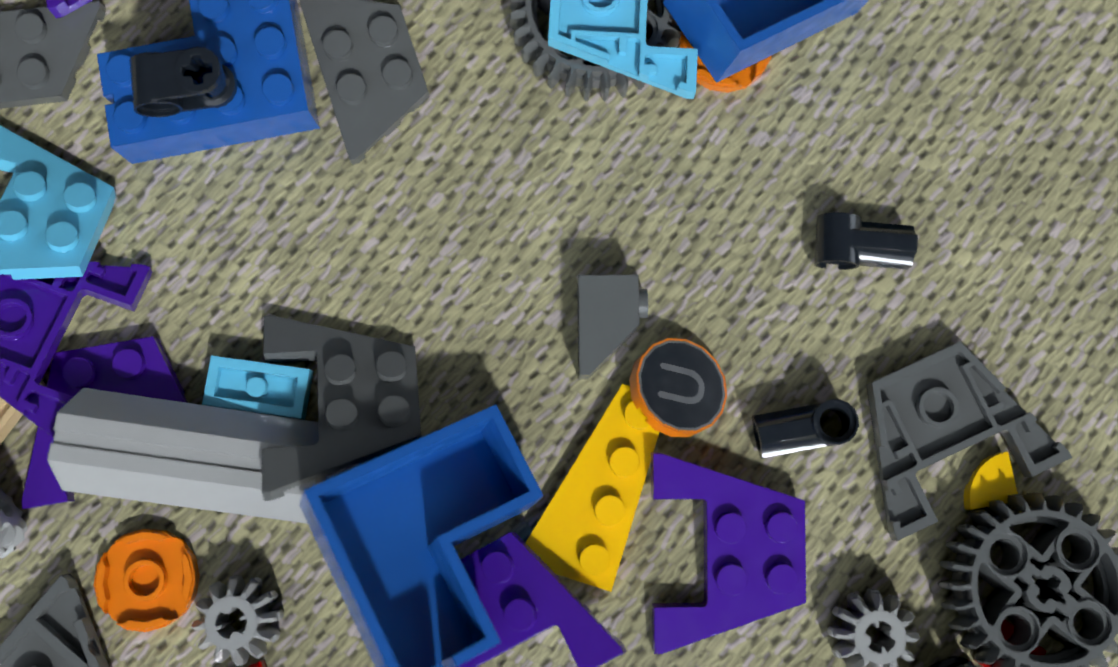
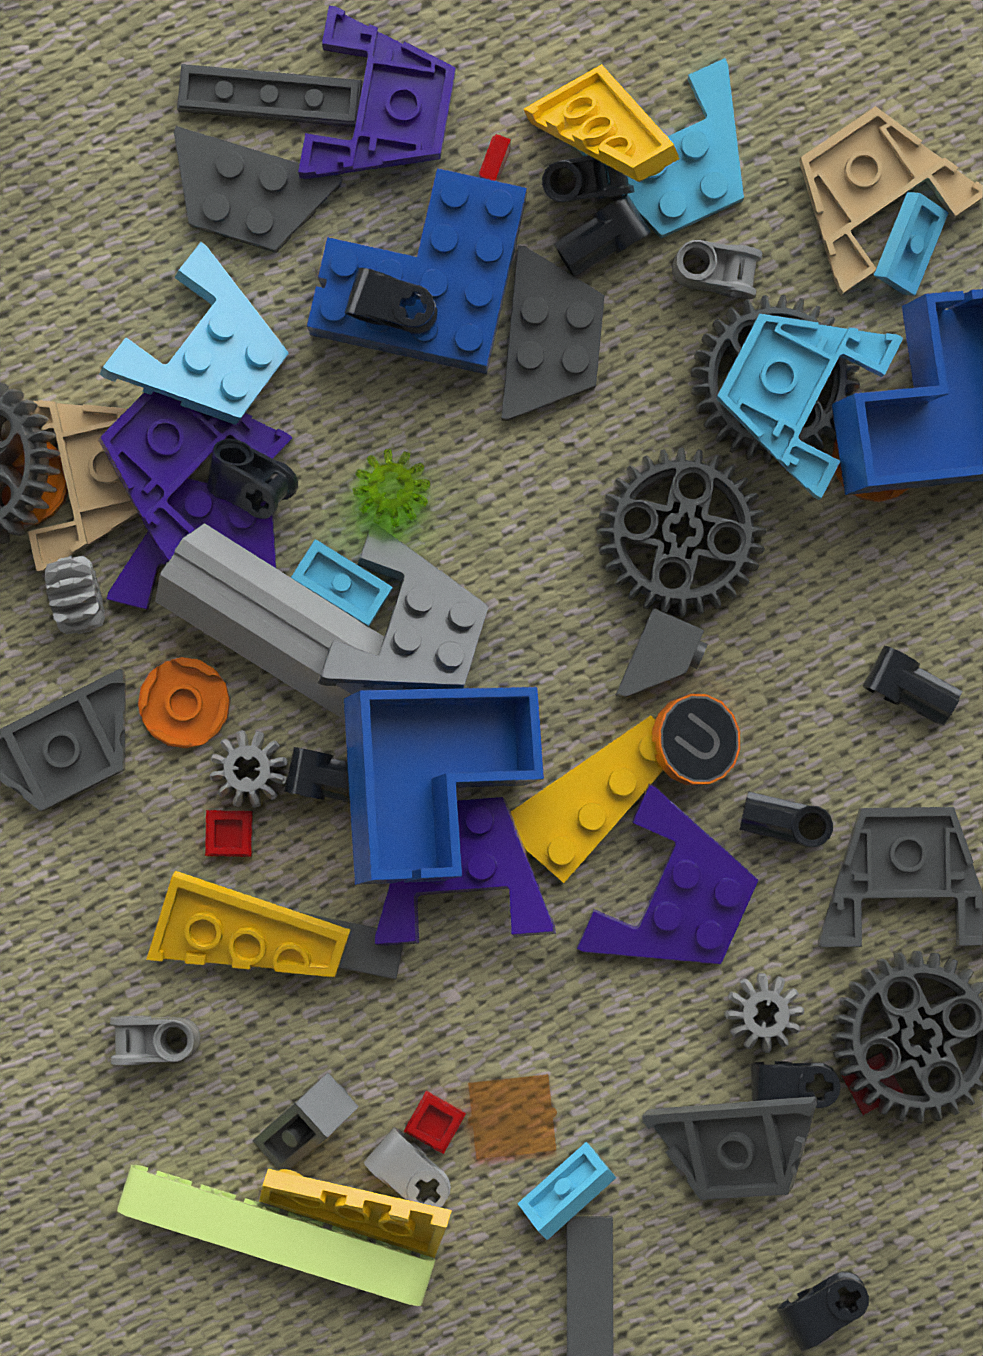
camera: 30 degrees right, 5 degrees up
(117, 322) = (245, 479): none -> black piece
(251, 271) = (405, 496): none -> clear neon green gear
(308, 596) = (317, 775): none -> black piece
(581, 172) = (709, 477): none -> dark grey gear
(990, 482) = (925, 936): yellow tile -> none

